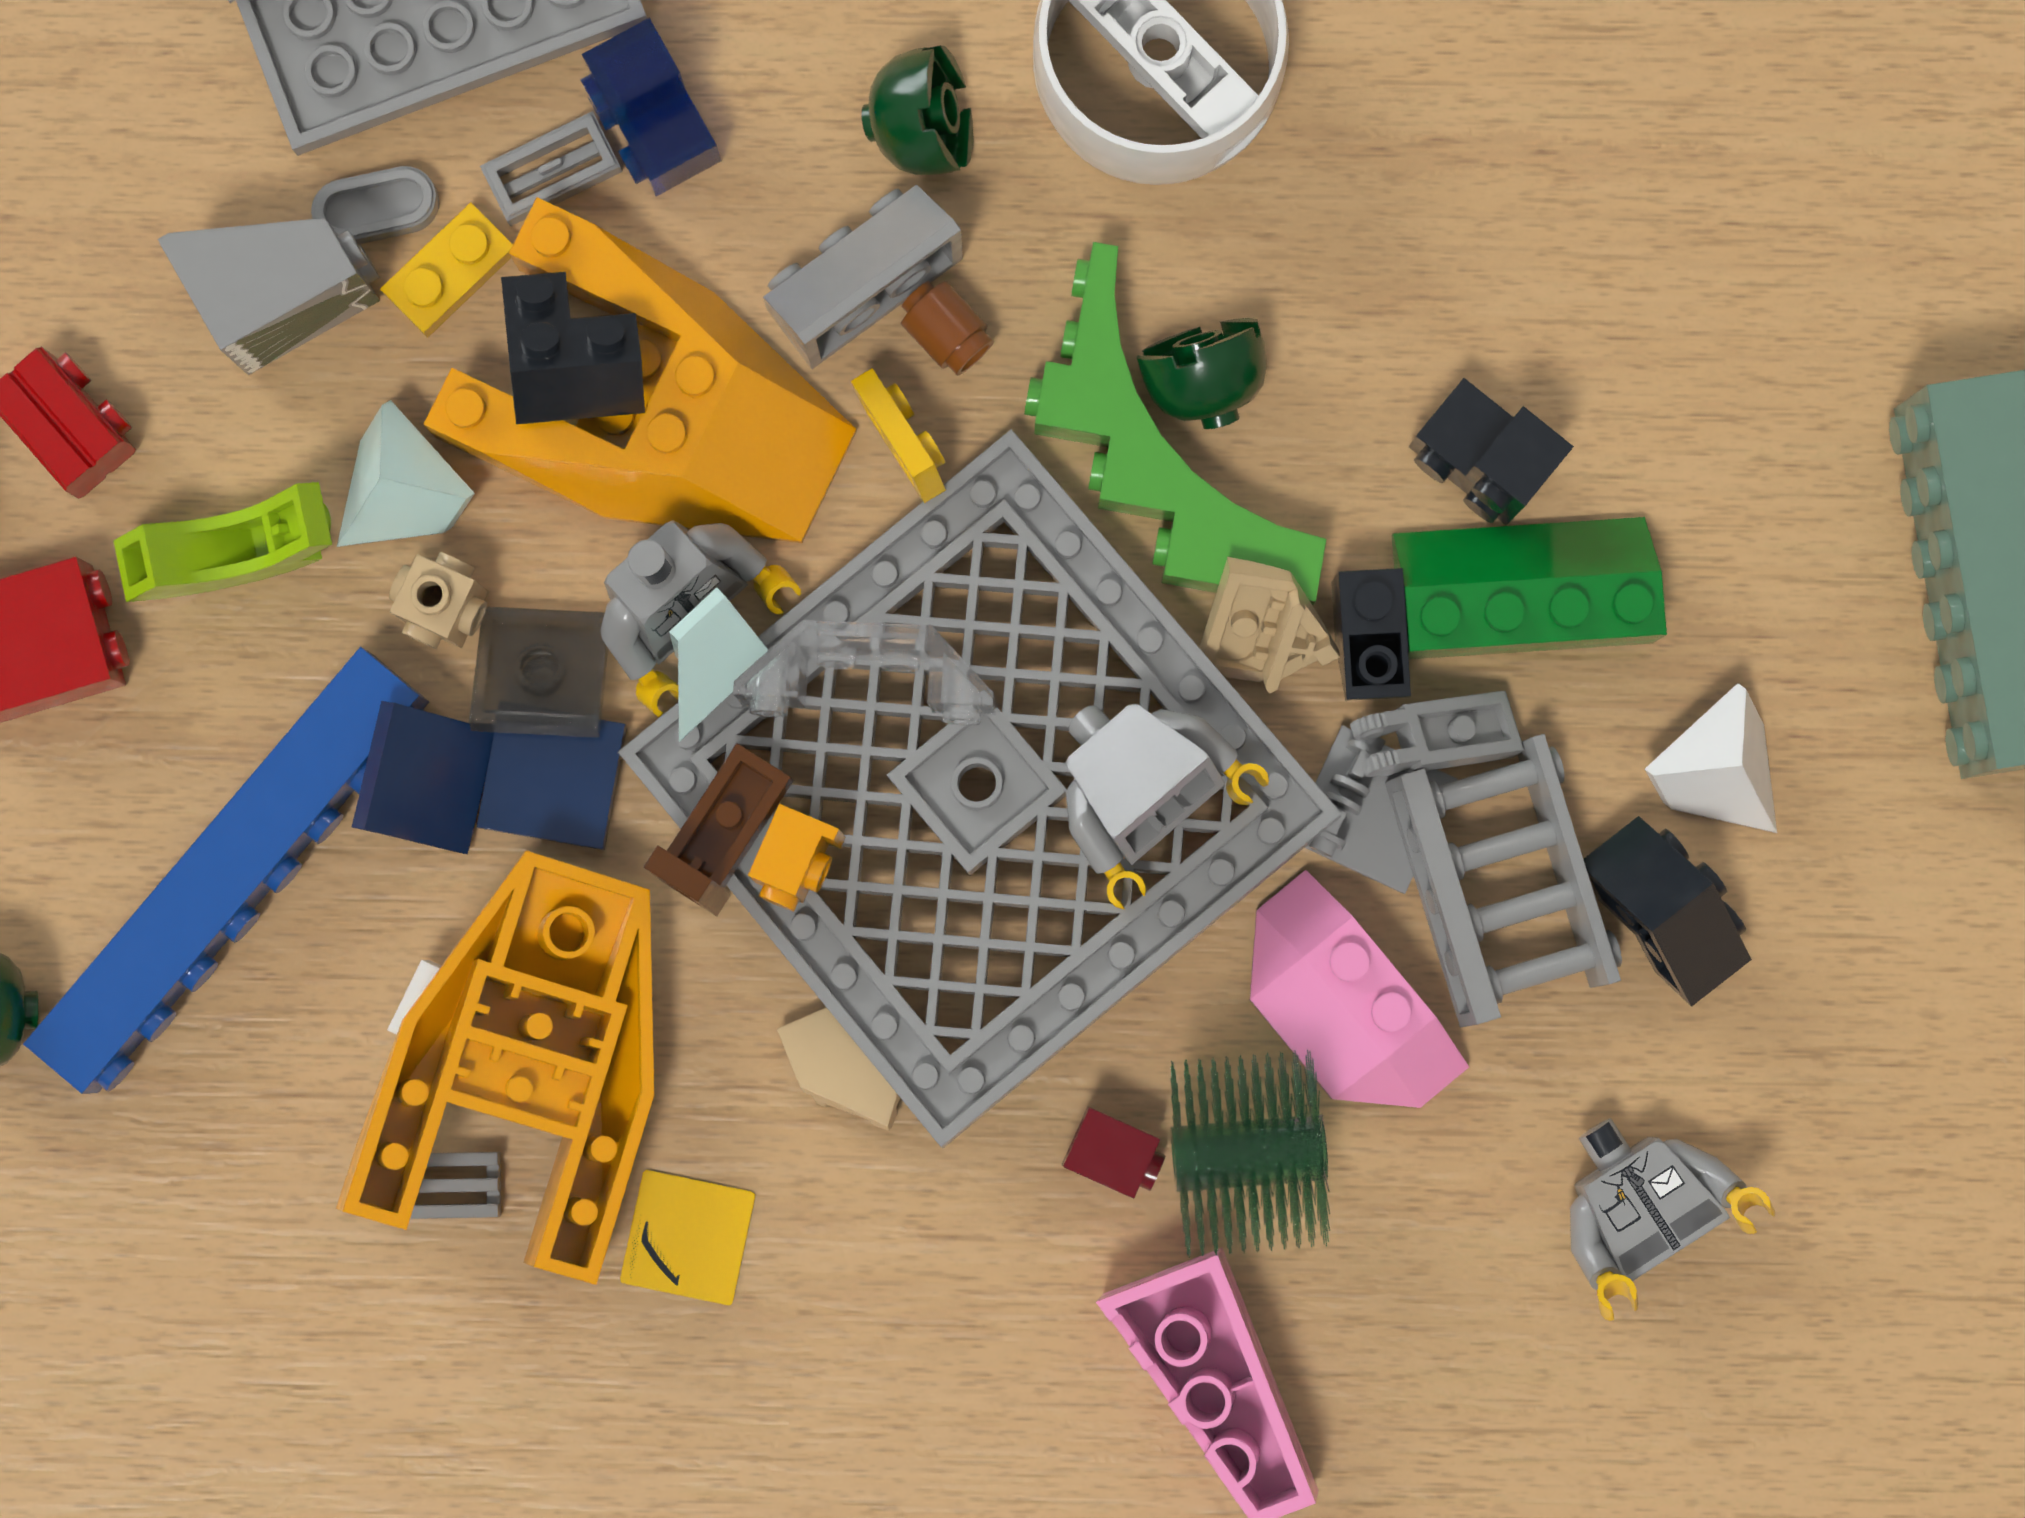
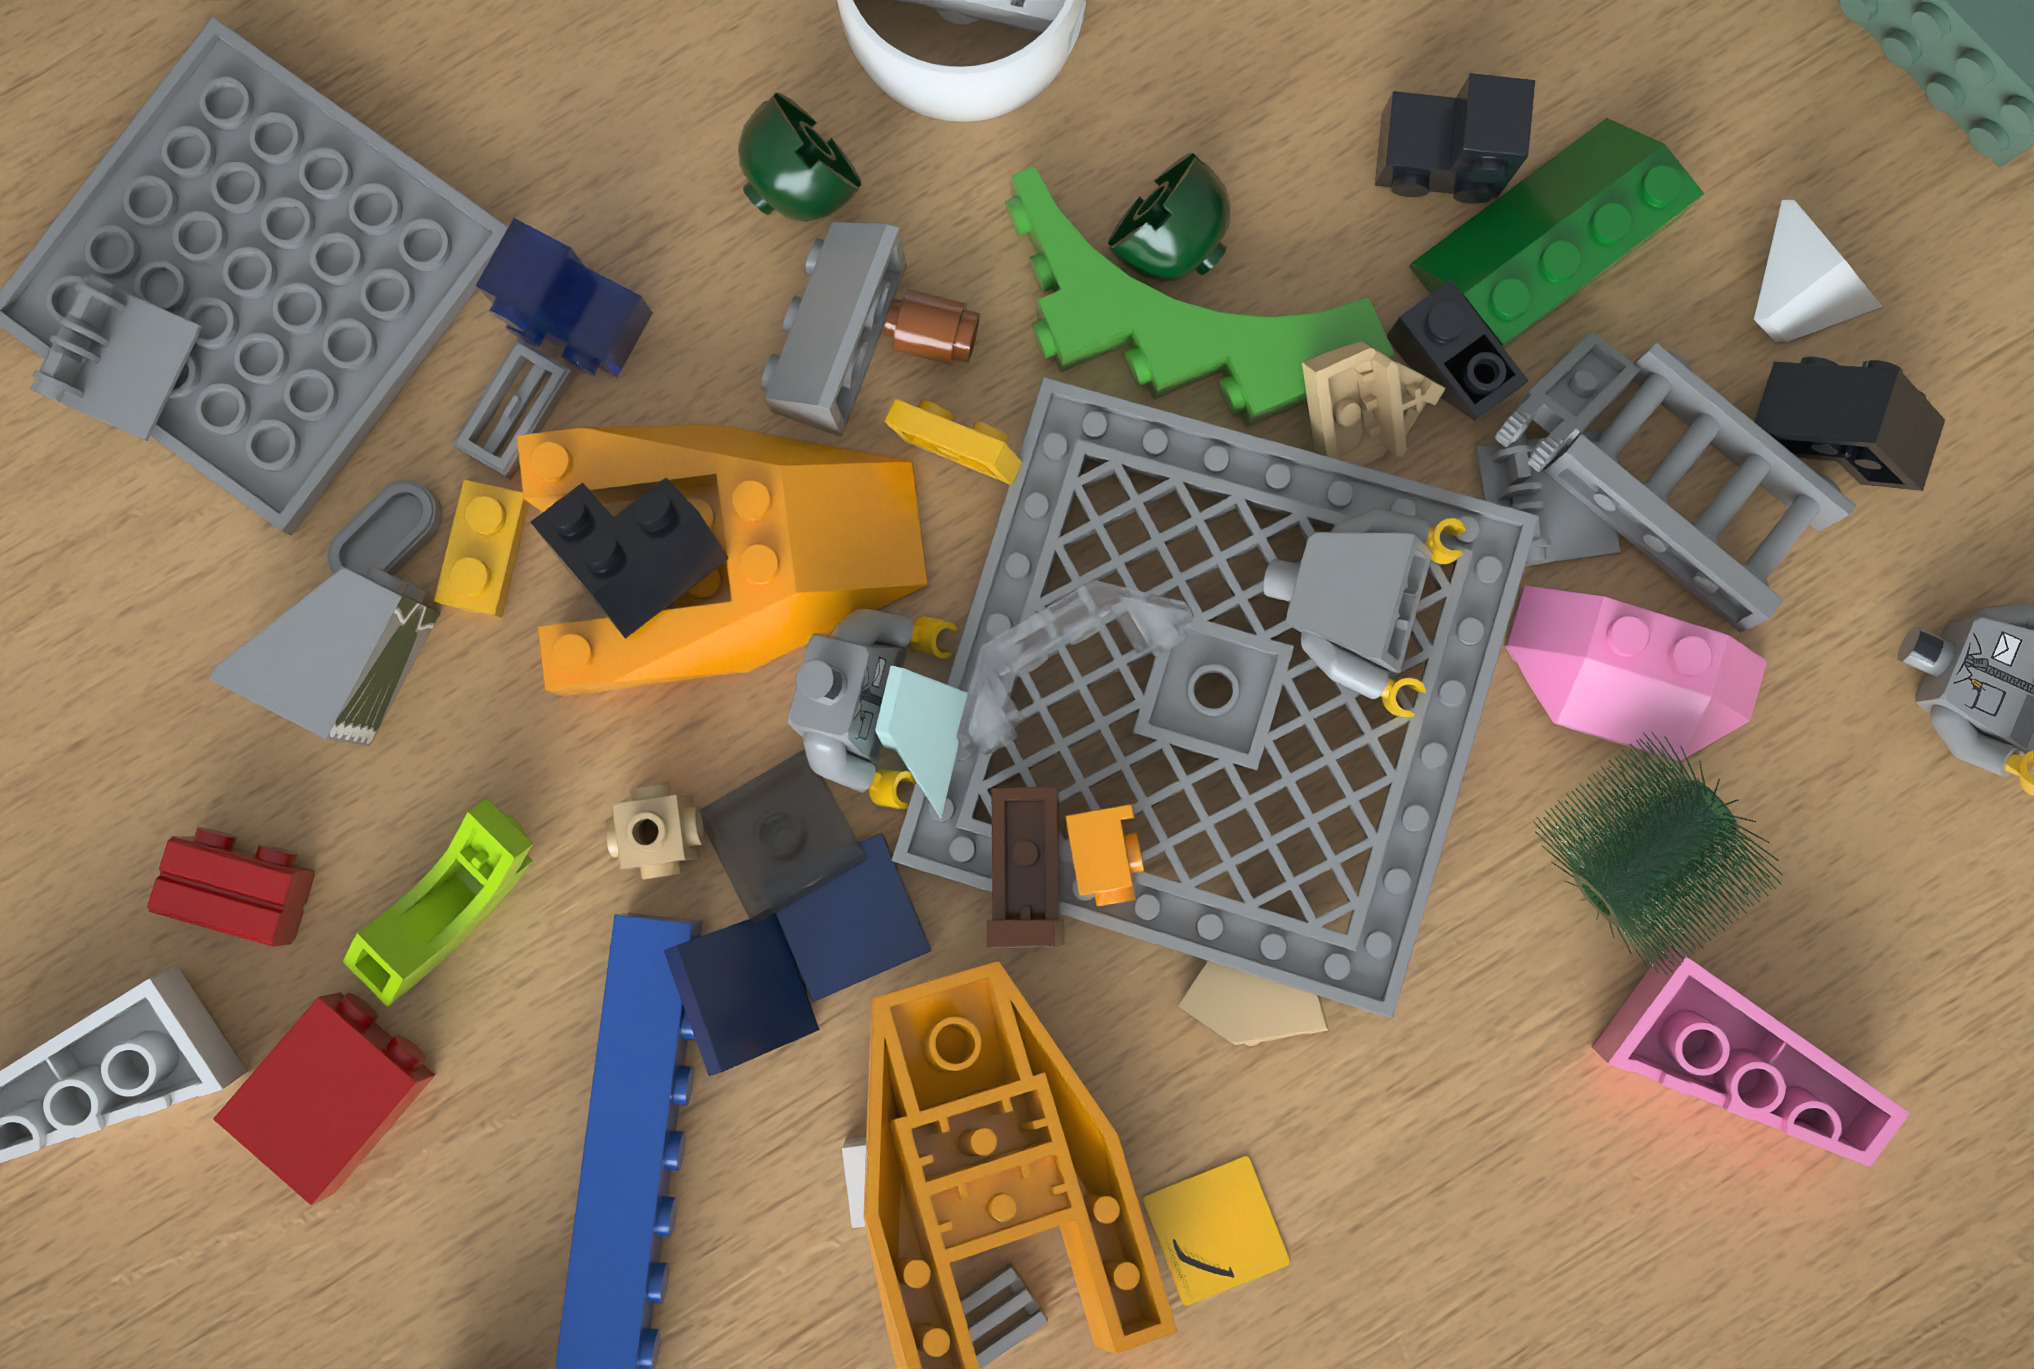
camera: 30 degrees left, 0 degrees up
(400, 485) = (558, 755): light aqua slope -> none
(1114, 1154) = (1528, 926): dark red brick -> none

